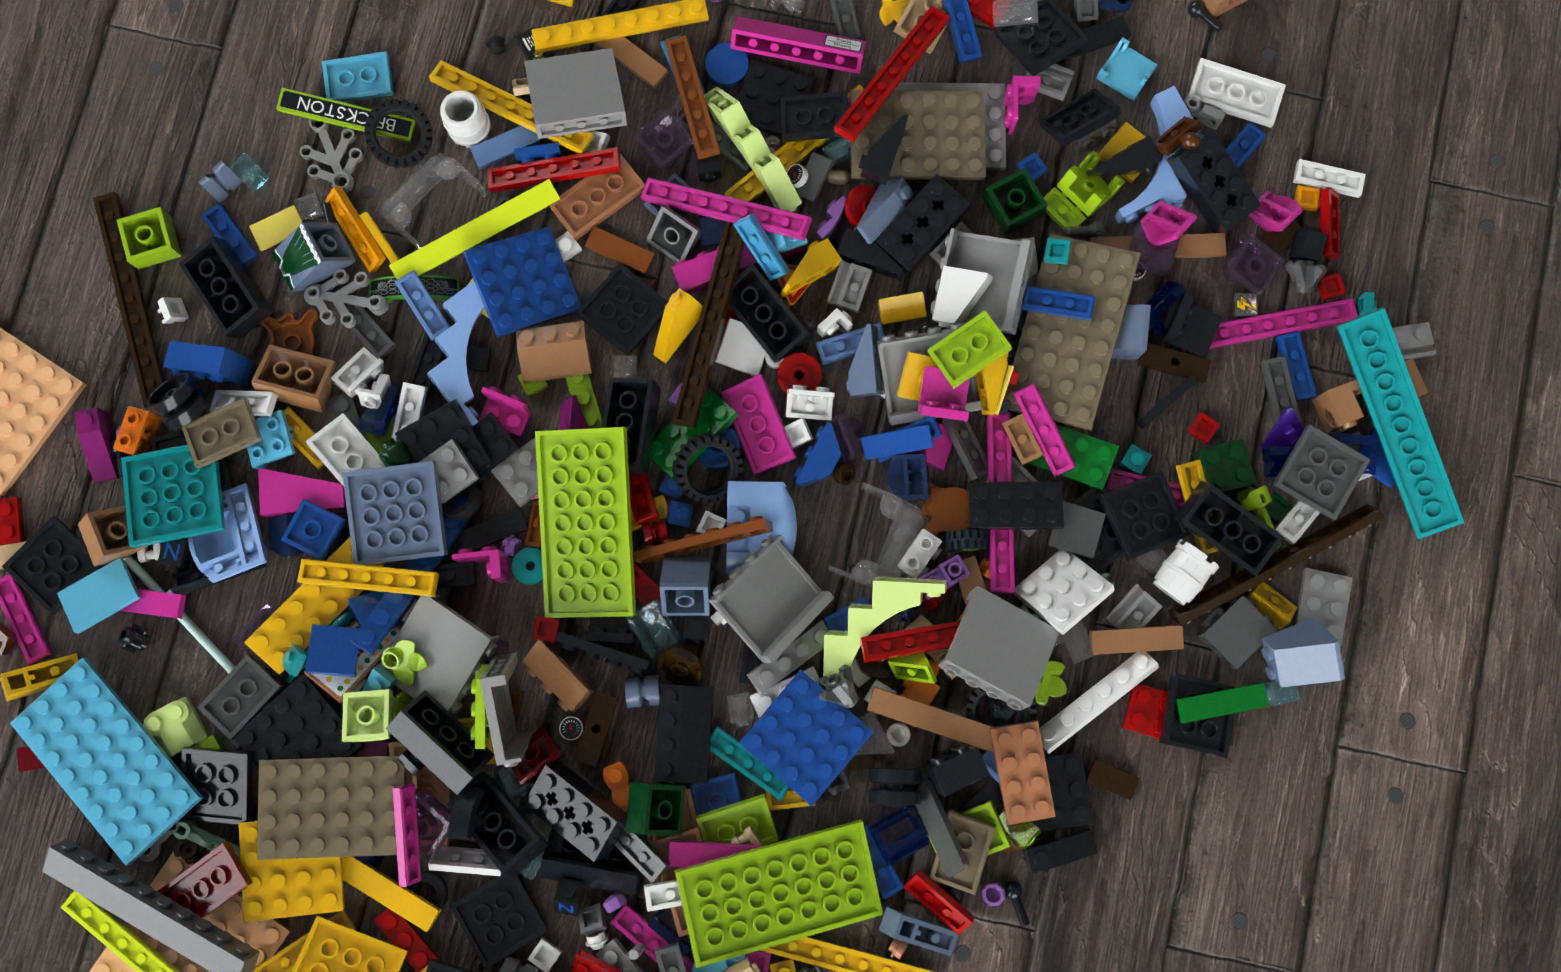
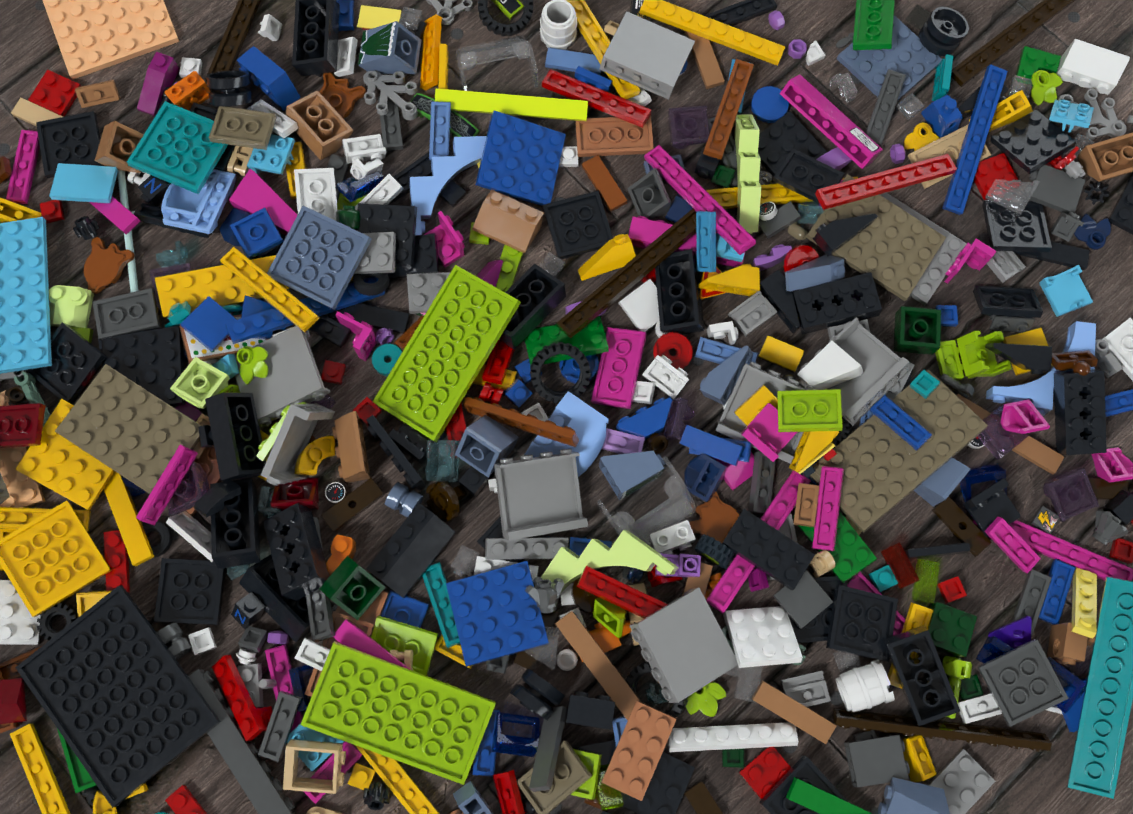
camera: 30 degrees right, 5 degrees down
(43, 494) = (97, 93): none -> medium nougat plate
(85, 644) = (52, 211): none -> red plate
(118, 404) = (189, 65): none -> white plate
(181, 662) = (105, 265): none -> dark orange tile
(239, 459) = (242, 154): none -> tan plate
(243, 611) = (171, 258): none -> clear light blue bracket
(272, 289) = (346, 56): none -> white plate
(485, 614) = (333, 372): none -> red plate
(525, 707) = (313, 454): none -> yellow tile
(732, 168) = (723, 176): none -> dark green tile
(813, 494) = (622, 442): none -> lavender plate
(826, 81) = (835, 158): none -> medium lavender slope
(839, 517) = (631, 471): none -> sand blue slope
(882, 35) = (897, 153): none -> medium lavender tile
(1024, 540) = (757, 580): none -> magenta tile
(1072, 484) = (822, 563): none -> tan plate
(1109, 719) = (733, 758): none -> dark green tile
(1143, 437) = (900, 565): none -> clear red tile
(1174, 436) = (925, 588): none -> clear neon green tile
(1231, 349) = (1012, 544): none -> dark pink plate
(1329, 361) = (1084, 603): none -> light yellow plate

